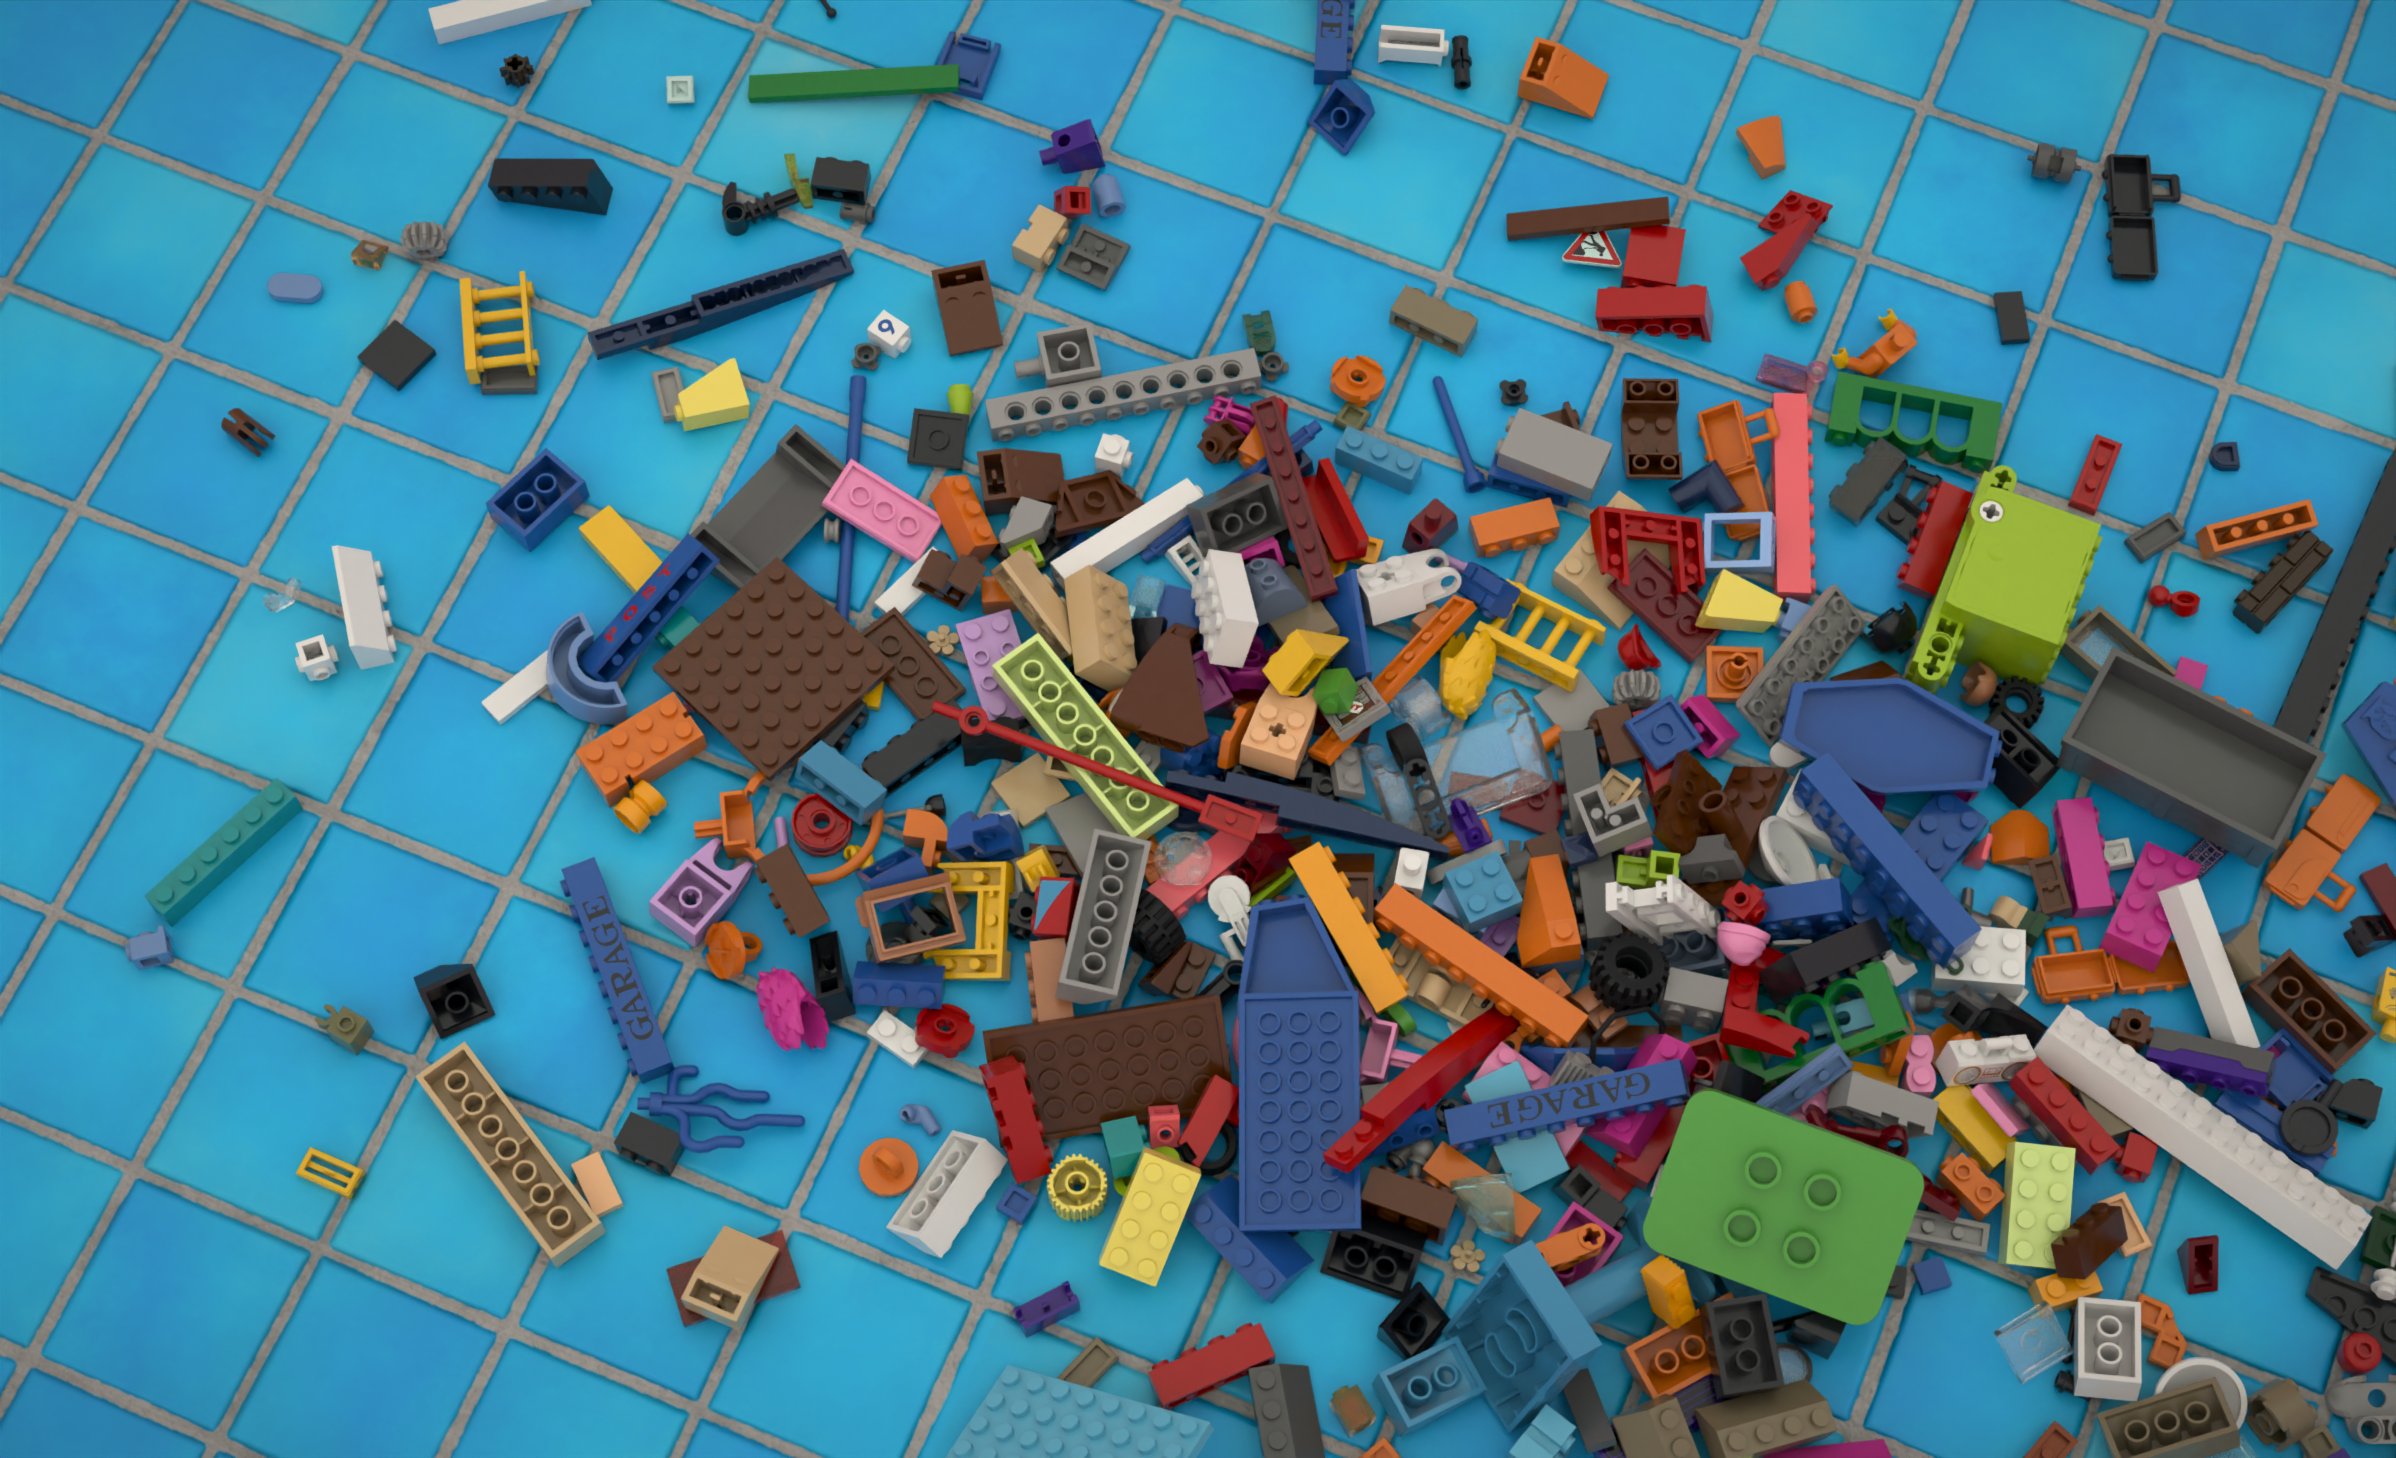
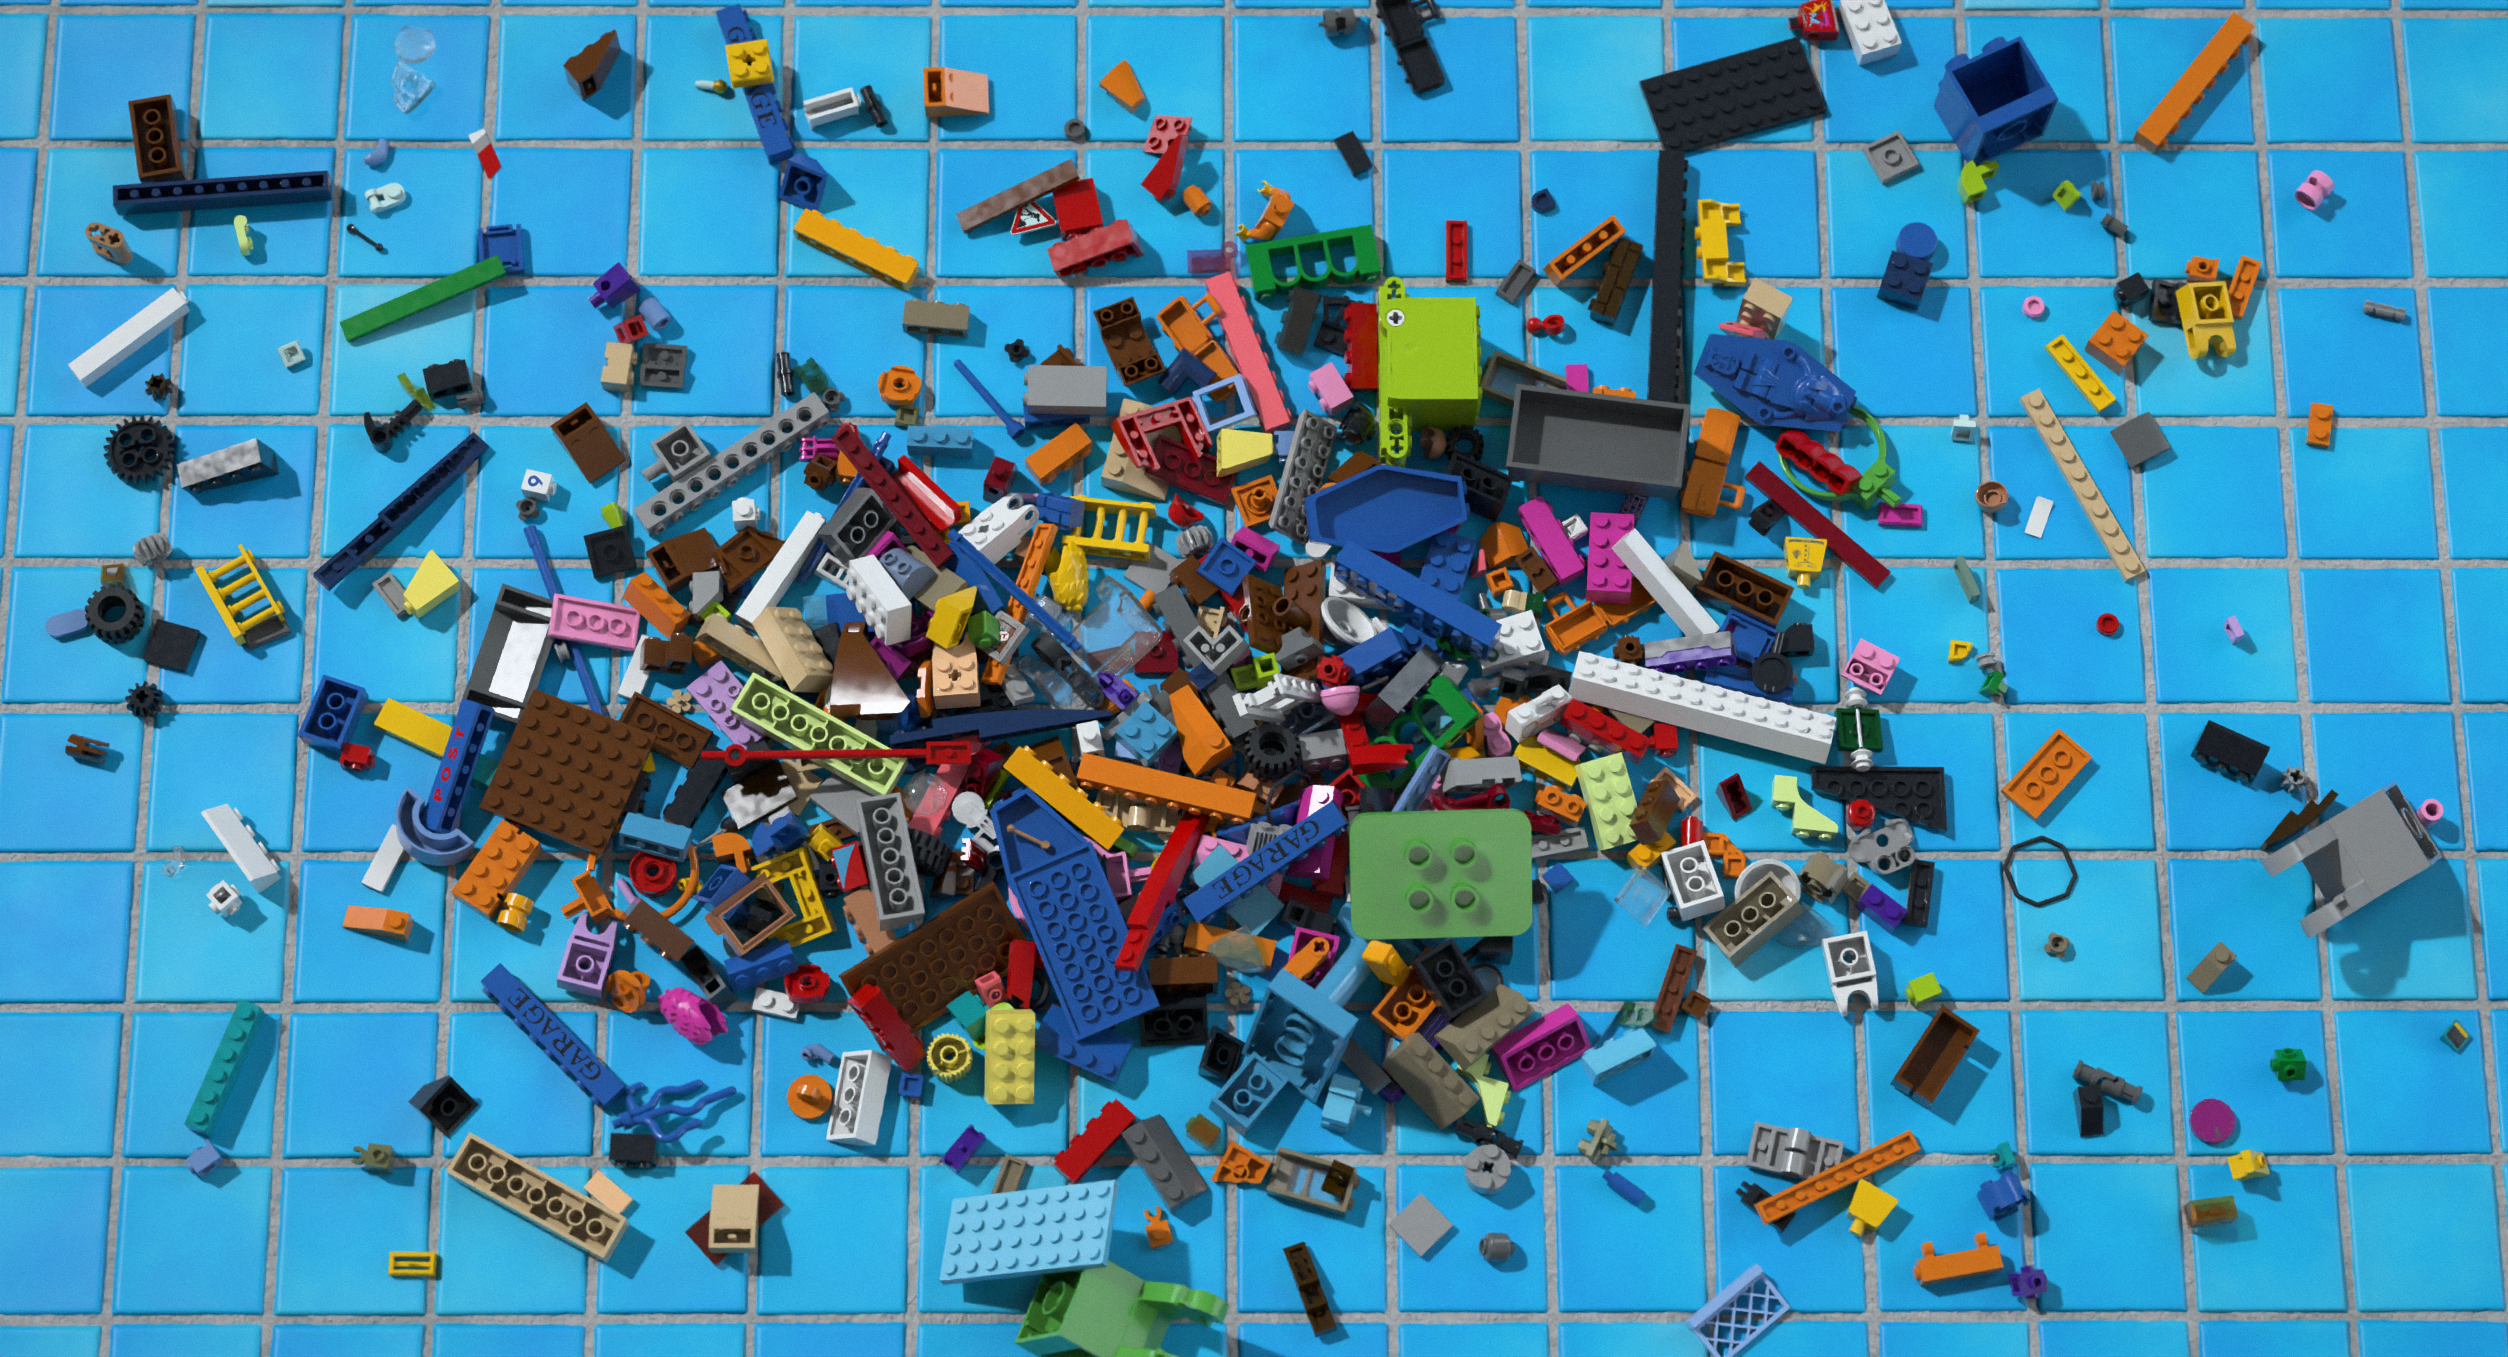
camera: 25 degrees left, 5 degrees up
(336, 402) = (150, 705): none -> black gear
(342, 278) = (121, 629): none -> black tyre
(463, 130) = (142, 467): none -> black gear
(481, 756) = (379, 922): none -> orange slope
(542, 558) = (357, 757): none -> red brick
(987, 784) = (759, 796): none -> tile
(1206, 959) = (971, 859): none -> red tile
(1230, 318) = (785, 374): none -> black pin
(1301, 975) = (1044, 844): none -> medium nougat hinge
(1373, 210) = (856, 249): none -> light orange brick
(1392, 660) = (1014, 590): none -> blue piece
(1686, 172) = (1074, 129): none -> dark grey tile
(1875, 576) = (1330, 389): none -> bright pink brick
(1996, 882) = (1498, 581): none -> orange slope
(2128, 1284) = (1691, 830): none -> red brick
(2283, 1330) = (1805, 819): none -> yellowish green arch

